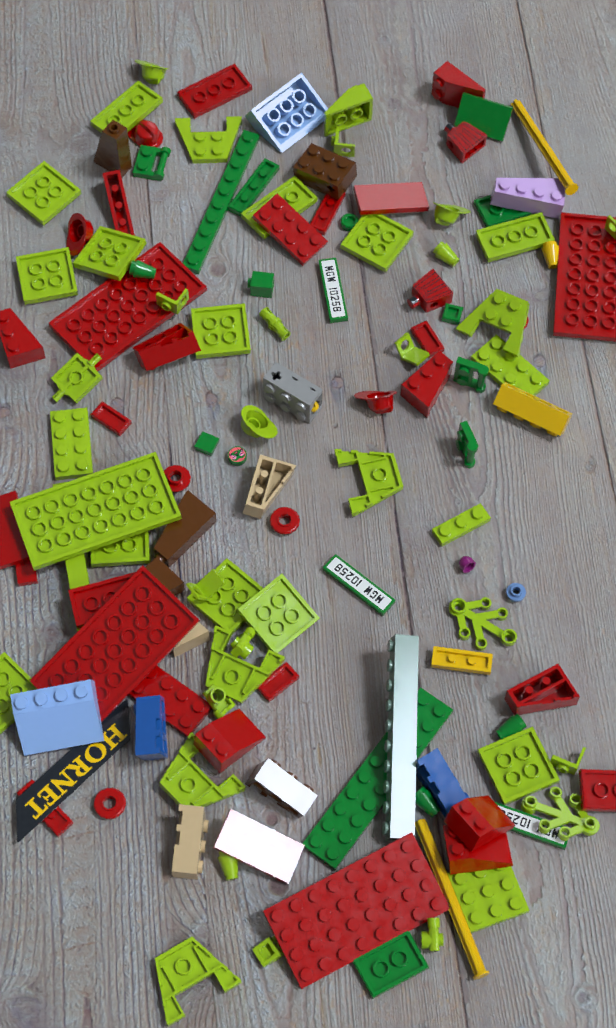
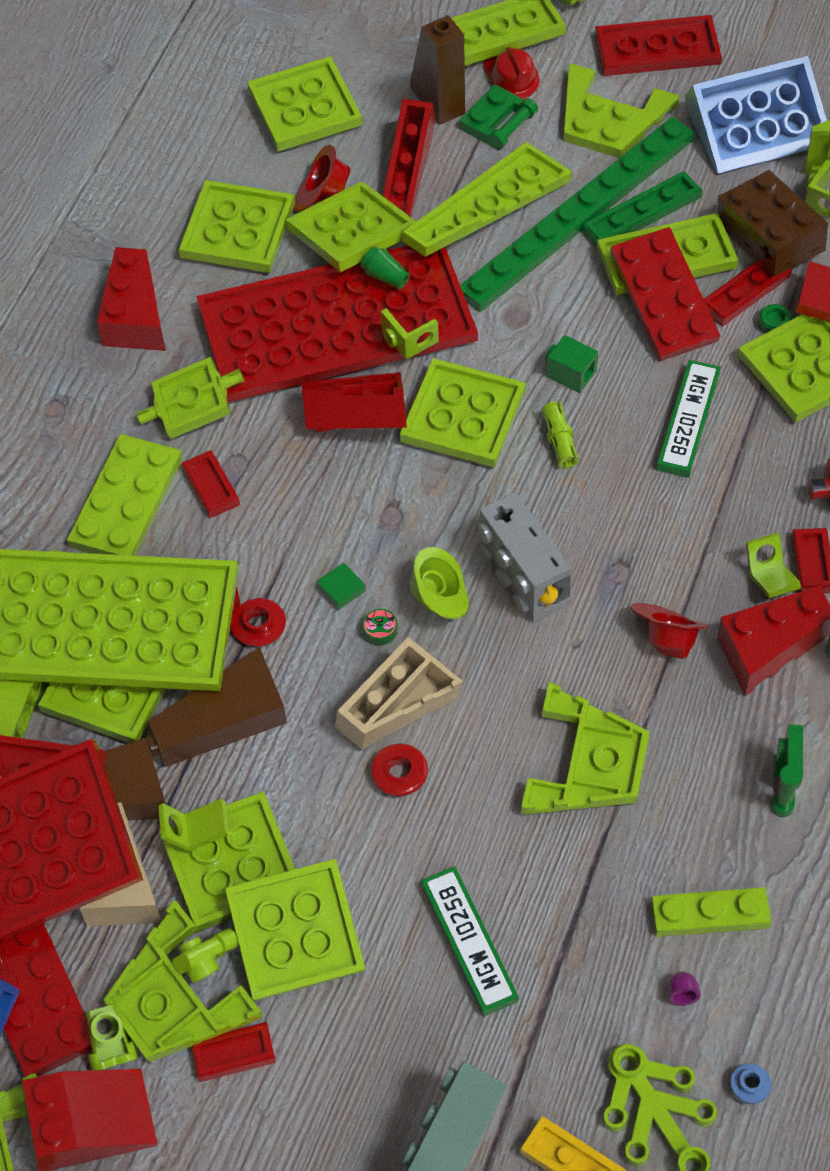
camera: 30 degrees right, 5 degrees down
(175, 207) = (495, 193): none -> lime wing

